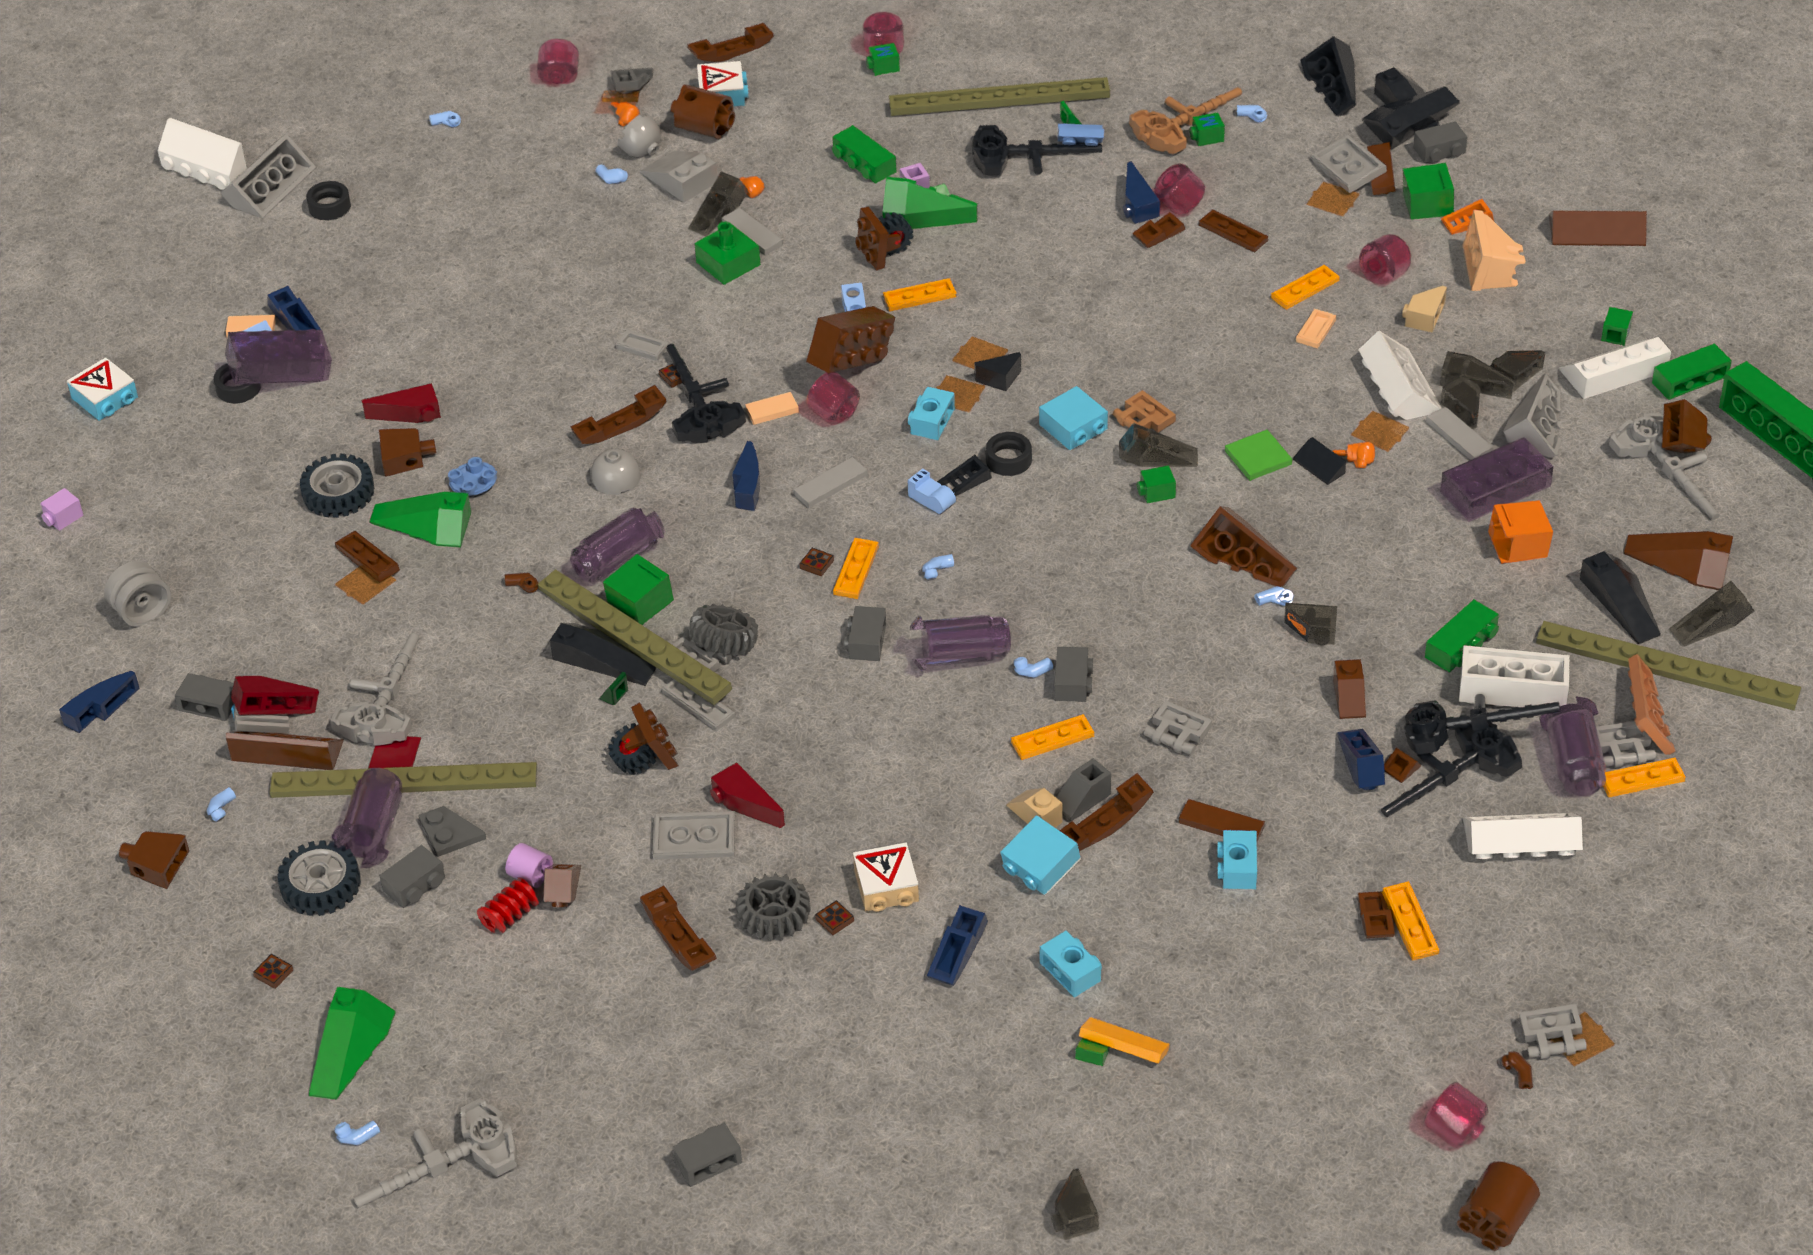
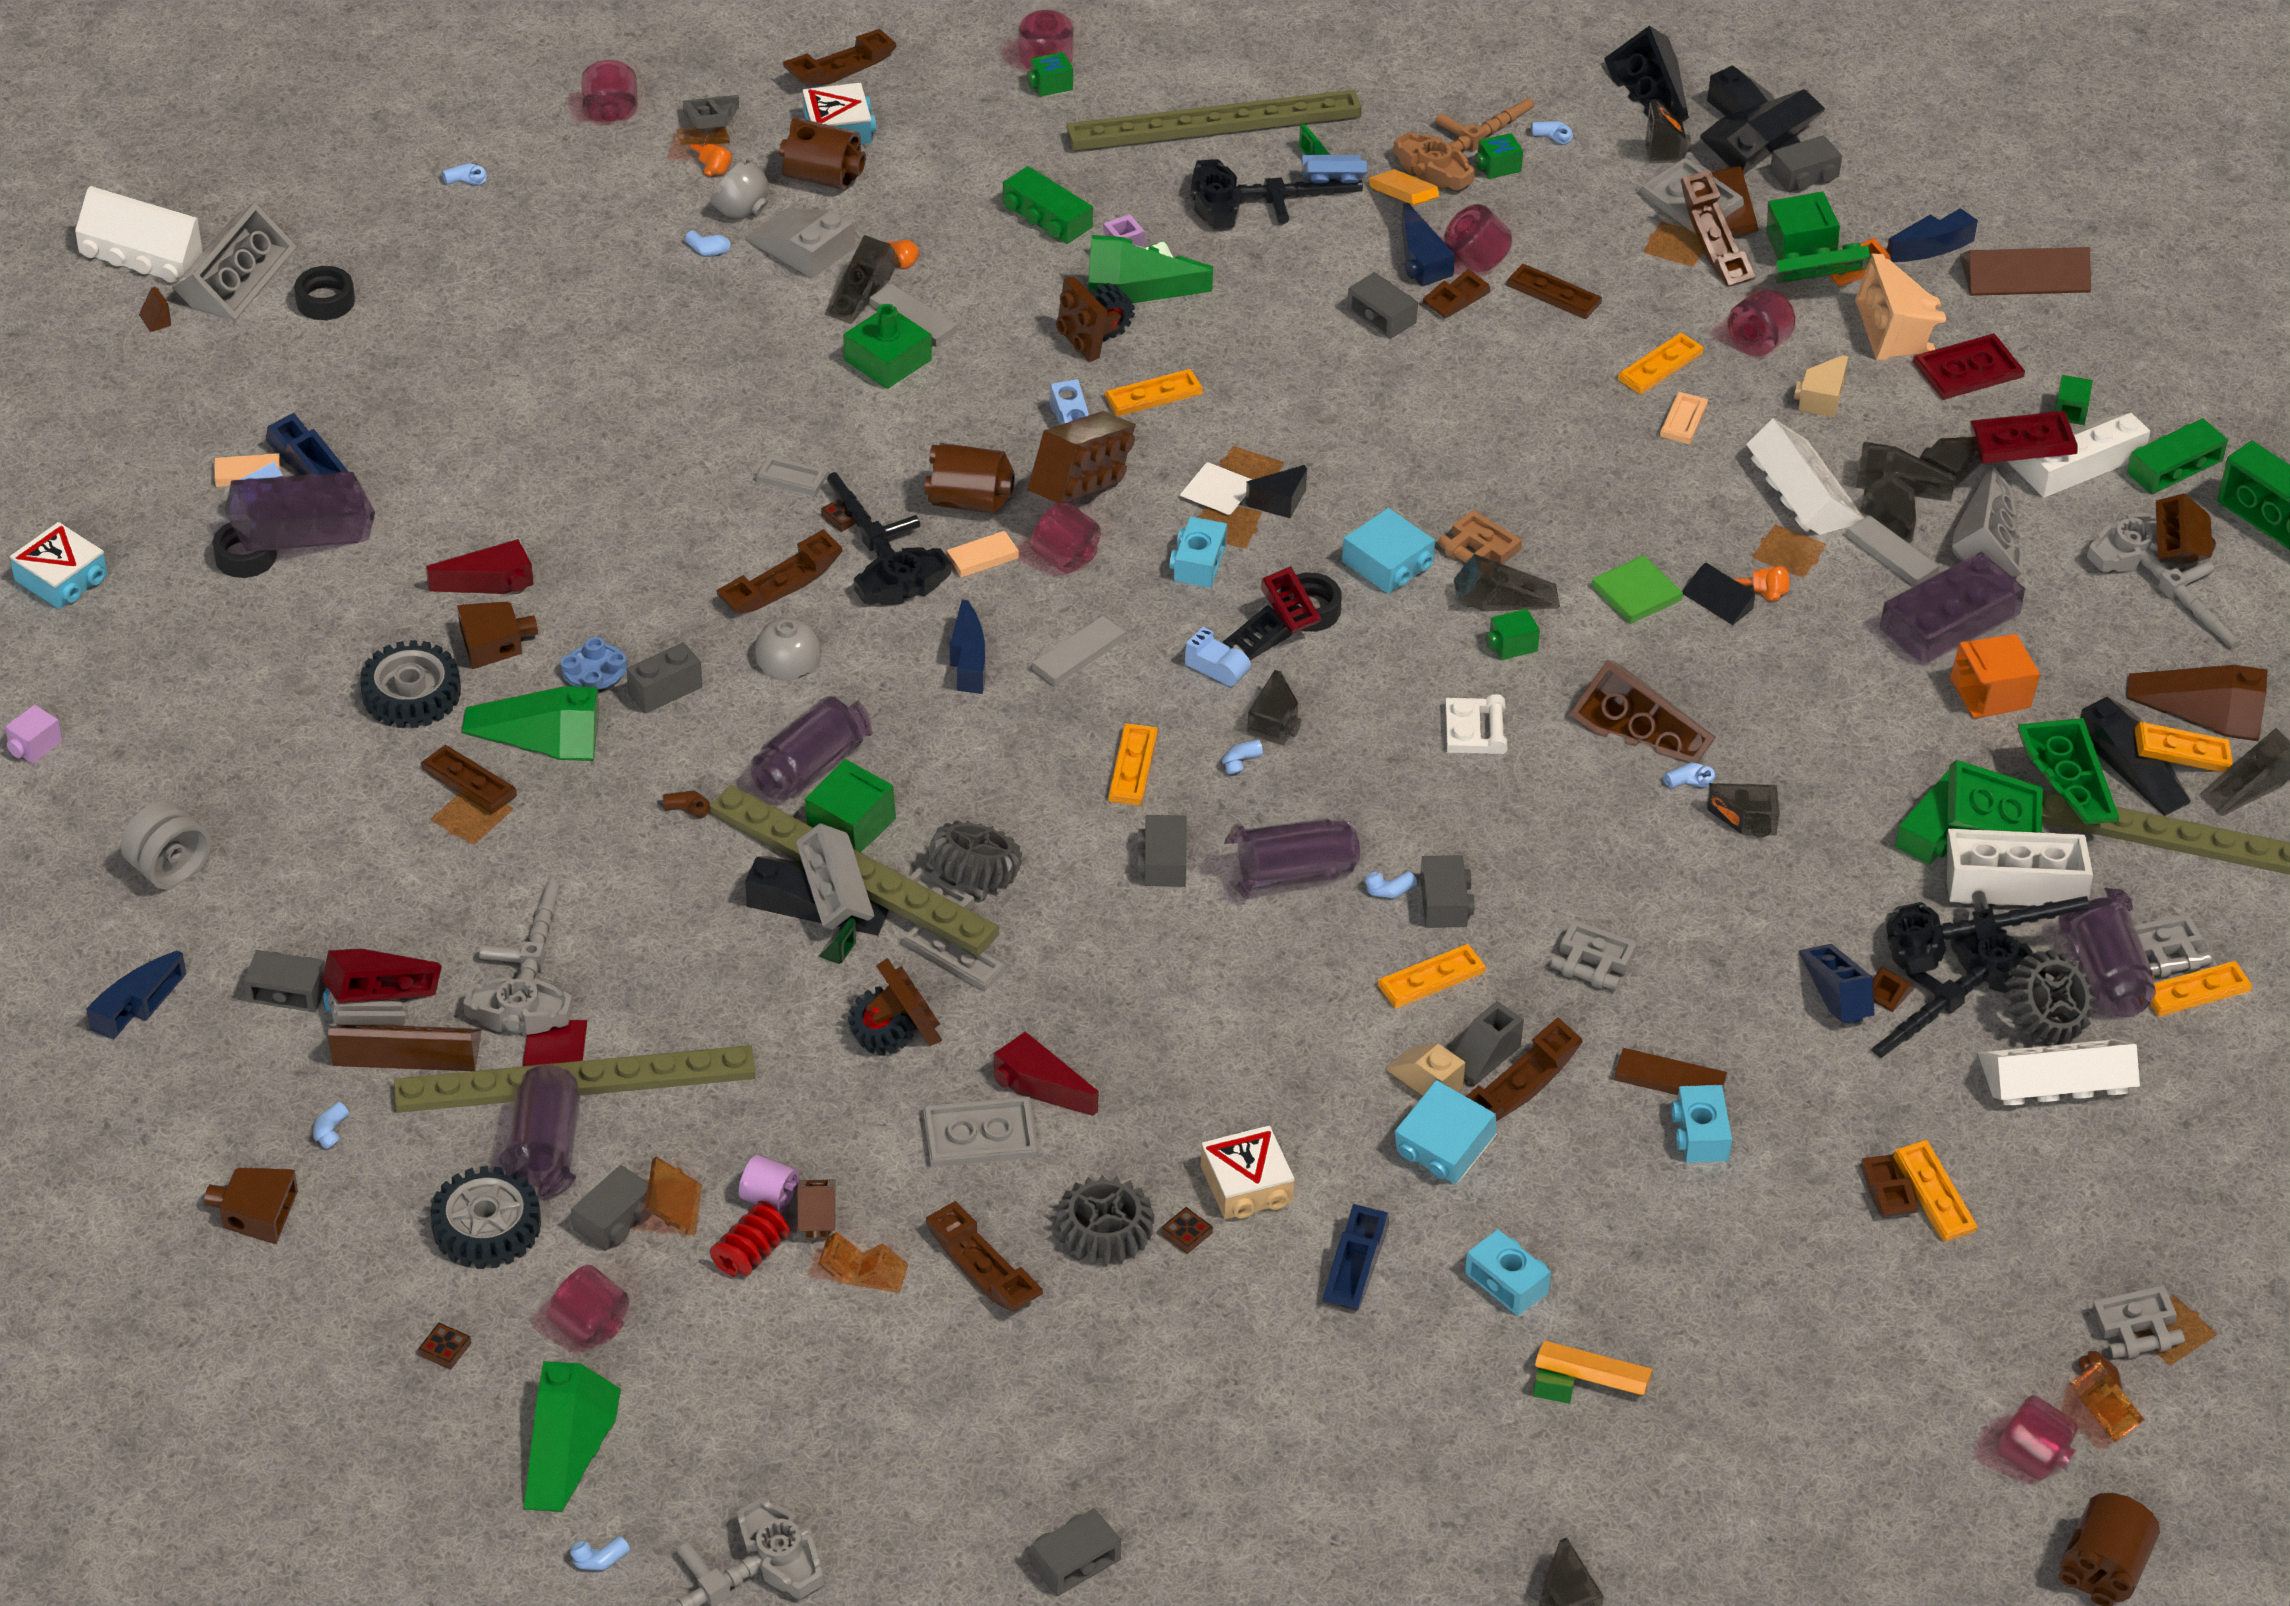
camera: 10 degrees left, 0 degrees up
(206, 210) = (155, 311): none -> reddish brown slope
(379, 948) = (588, 1307): none -> clear pink head
(449, 831) = (643, 1138): dark grey wing -> none
(457, 870) = (673, 1196): none -> clear orange piece
(520, 488) = (664, 677): none -> dark grey brick
(596, 933) = (873, 1269): none -> clear orange slope
(615, 639) = (834, 876): none -> light grey panel
(768, 351) = (969, 478): none -> reddish brown cylinder
(816, 561) = (1079, 758): reddish brown tile -> none
(953, 367) = (1217, 488): none -> white sticker
(966, 534) = (1274, 712): none -> clear smoke slope
(984, 436) = (1279, 580): none -> dark red slope
(1100, 236) = (1382, 305): none -> dark grey brick
(1110, 548) = (1464, 725): none -> white plate
(1131, 149) = (1404, 187): none -> light orange tile
(1335, 118) = (1665, 136): none -> clear smoke slope
(1349, 688) = (1808, 892): reddish brown slope -> none
(1359, 188) = (1713, 231): none -> slope
(1436, 216) = (1822, 263): none -> green plate
(1501, 626) = (1992, 800): none -> green plate
(1516, 1091) = (2107, 1401): none -> clear orange slope
(1528, 200) = (1932, 237): none -> dark blue slope
(1539, 788) = (2062, 997): none -> dark grey gear
(1541, 298) = (1968, 366): none -> dark red tile
(1567, 602) = (2071, 765): none -> green wedge
(1570, 352) = (2023, 437): none -> dark red tile
(1647, 705) = (2191, 894): nougat wing -> none
(1659, 592) = (2183, 747): none -> light orange tile

